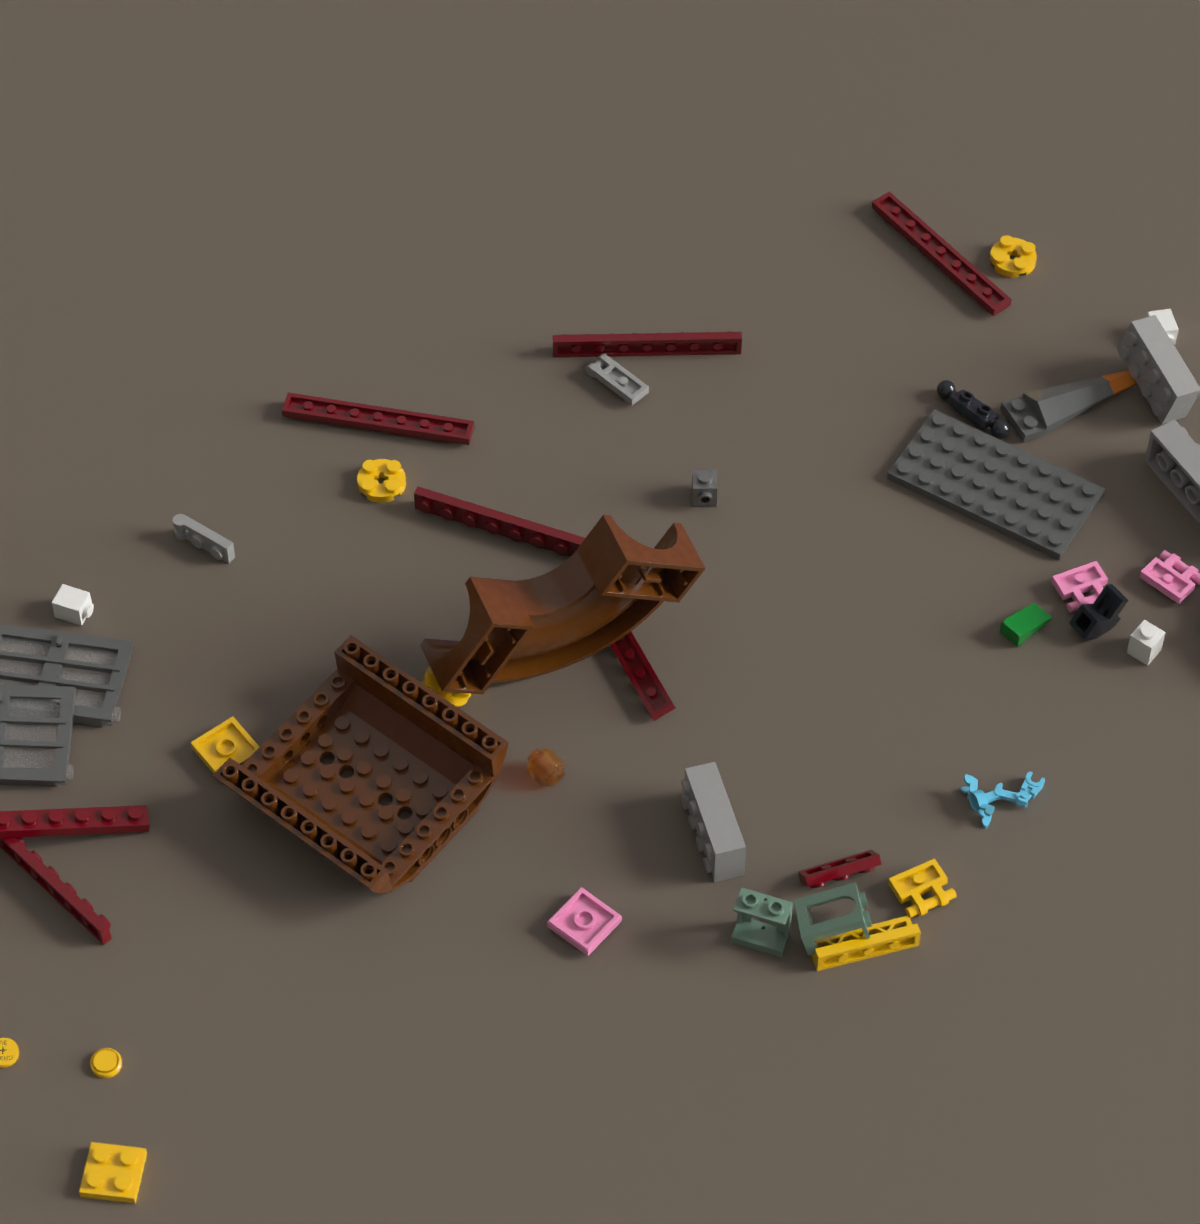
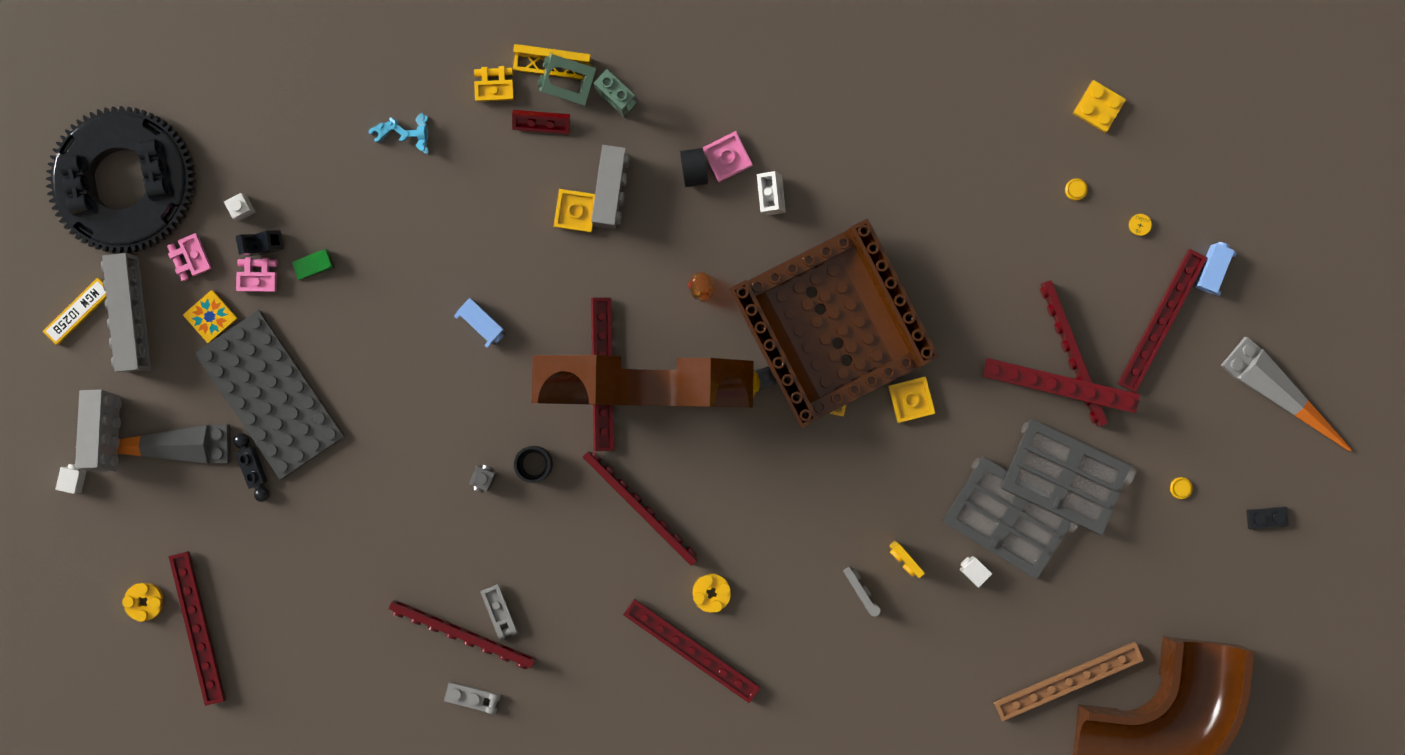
camera: 155 degrees left, 35 degrees up
(162, 580) = (909, 564): none -> yellow plate
(507, 894) = (771, 193): none -> white brick
(604, 298) = (472, 697): none -> light grey plate
(620, 883) = (694, 167): none -> black piece
(652, 507) = (519, 469): none -> black piece
(748, 790) = (574, 210): none -> yellow plate
(793, 636) = (481, 322): none -> light blue brick
(1110, 531) = (210, 316): none -> tile

